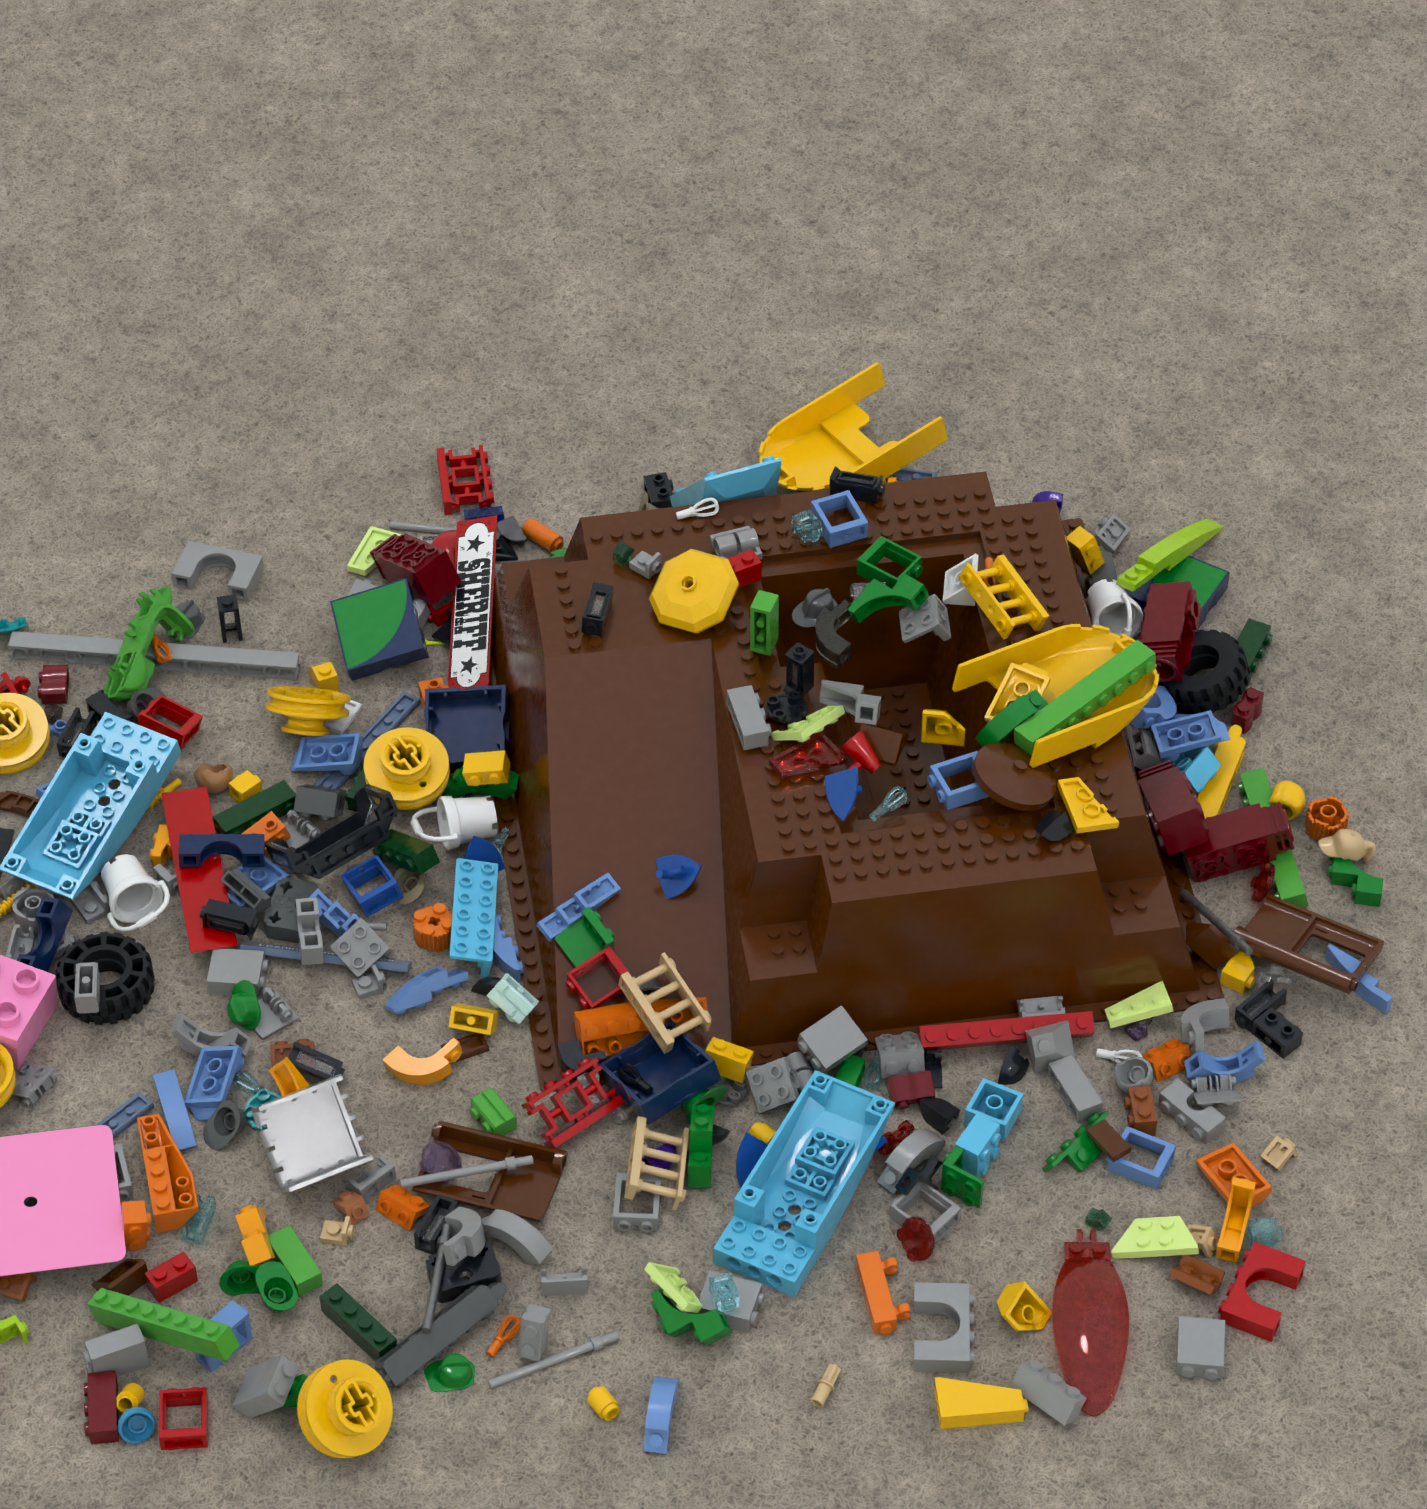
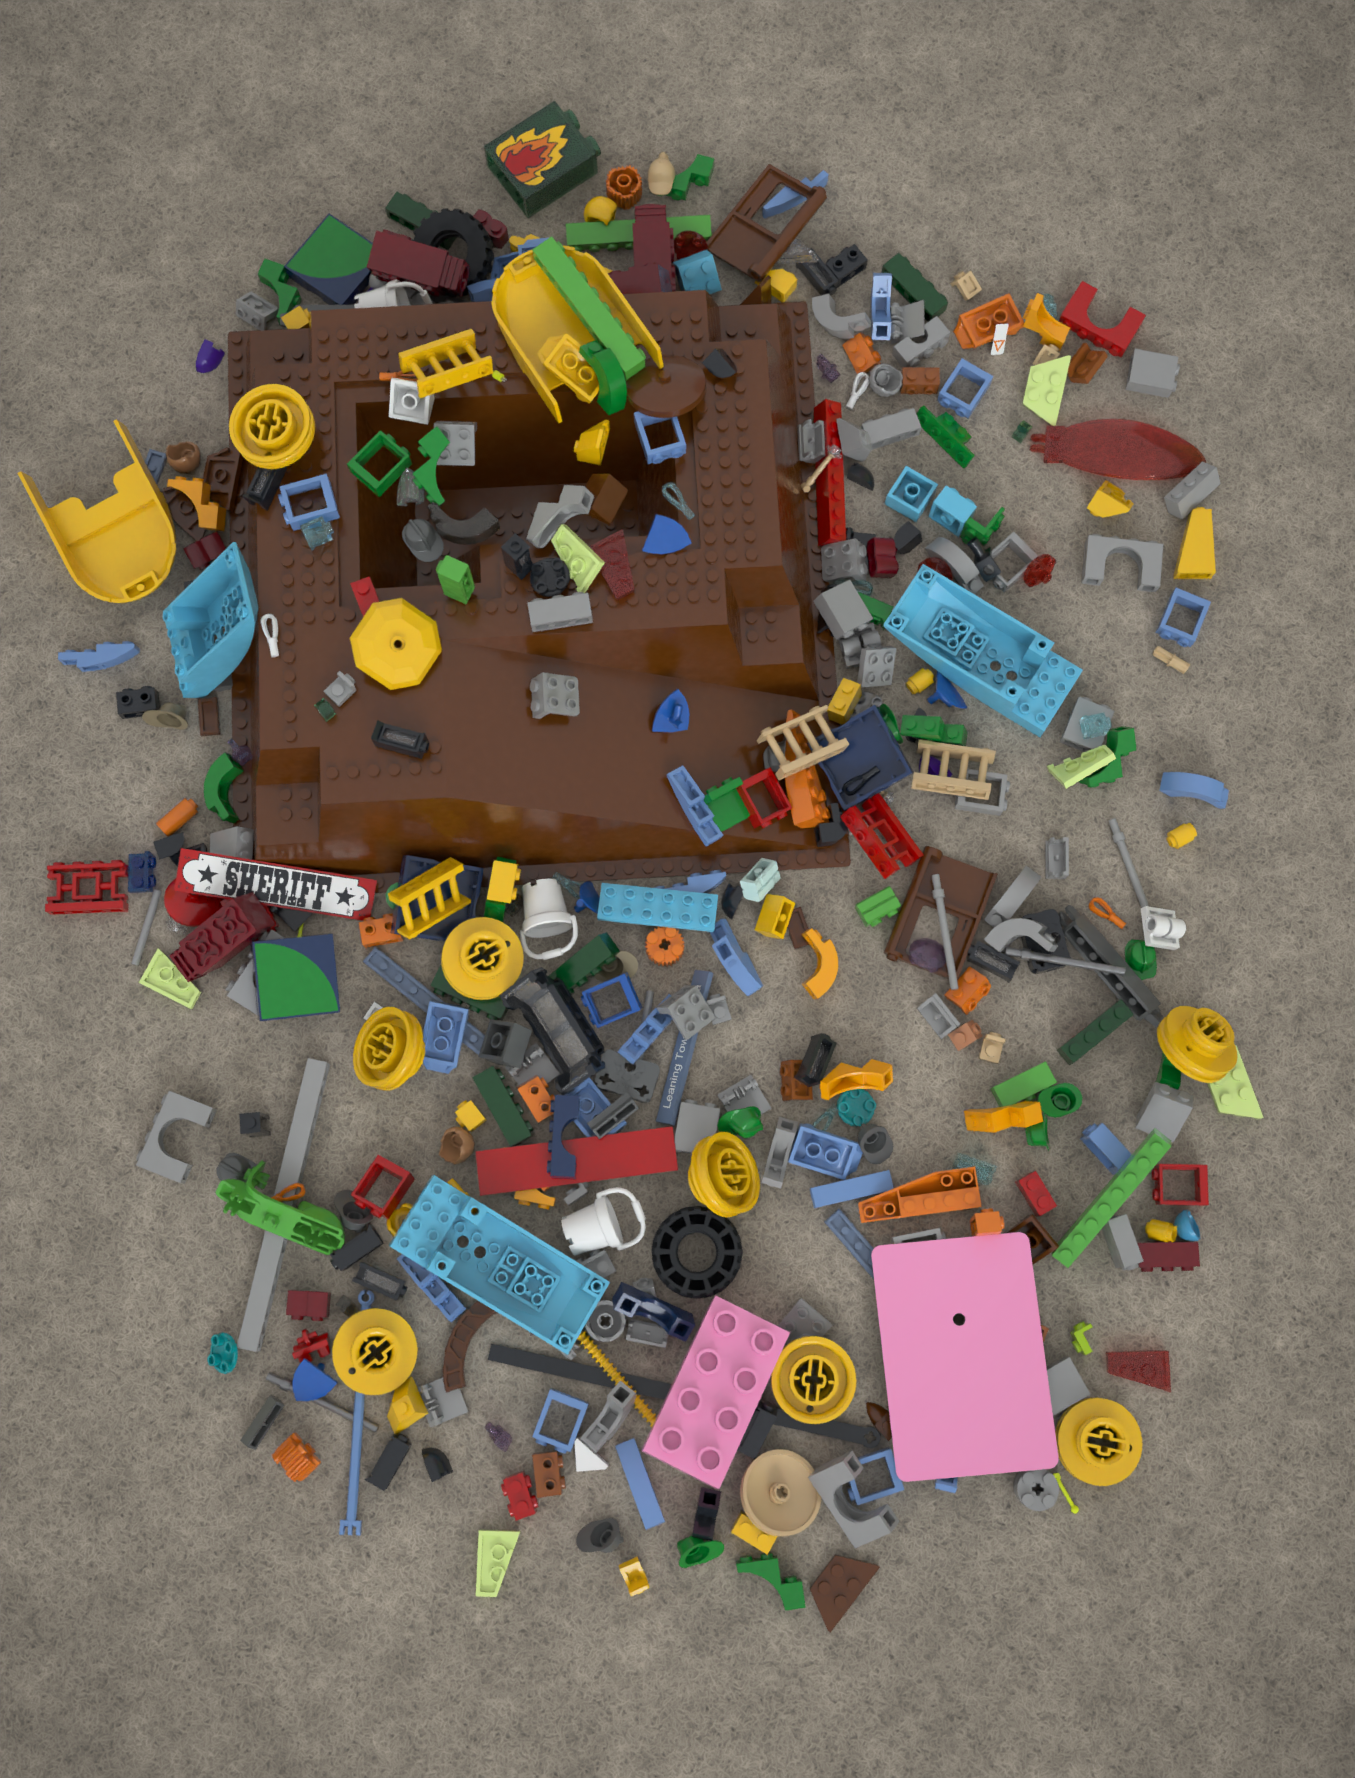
camera: 85 degrees left, 30 degrees up
(87, 987) = (735, 1264): light grey brick -> none
(202, 992) = (724, 1175): none -> yellow wheel
(229, 918) = (648, 1131): black window -> none
(301, 1471) = (1235, 1093): none -> yellowish green wing
(309, 931) = (674, 1058): light grey arch -> none
(309, 1134) = (915, 1060): windscreen -> none
(324, 676) = (333, 1037): yellow slope -> none
(480, 702) = (418, 887): none -> yellow fence
(486, 1380) = (1162, 928): none -> white plate
(534, 1332) = (1121, 884): light grey brick -> none
(670, 746) = (554, 695): none -> light grey bracket
(701, 457) = (104, 657): none -> medium blue slope
(735, 542) = (332, 601): light grey plate -> none
(861, 751) = (615, 516): red piece -> none
(876, 1293) = (1086, 609): orange brick -> none
(876, 1409) = (1187, 600): none -> medium blue window
(909, 473) = (272, 426): none -> yellow wheel
(1023, 1015) = (833, 452): none -> tan piece
(1083, 808) = (702, 336): yellow wing -> none
(1108, 1140) = (957, 407): reddish brown tile -> none
(1127, 555) = (275, 277): none -> green arch
(1140, 1006) = (814, 363): yellowish green wing -> none
(1168, 553) = (310, 254): lime slope -> none
(1210, 1184) = (999, 339): none -> white sticker
(1226, 888) = (698, 273): none -> medium azure brick
(1235, 939) = (771, 270): flat silver bar -> none
(1263, 1100) = (914, 286): none -> dark green brick
(1341, 742) = (542, 158): none -> clear green brick

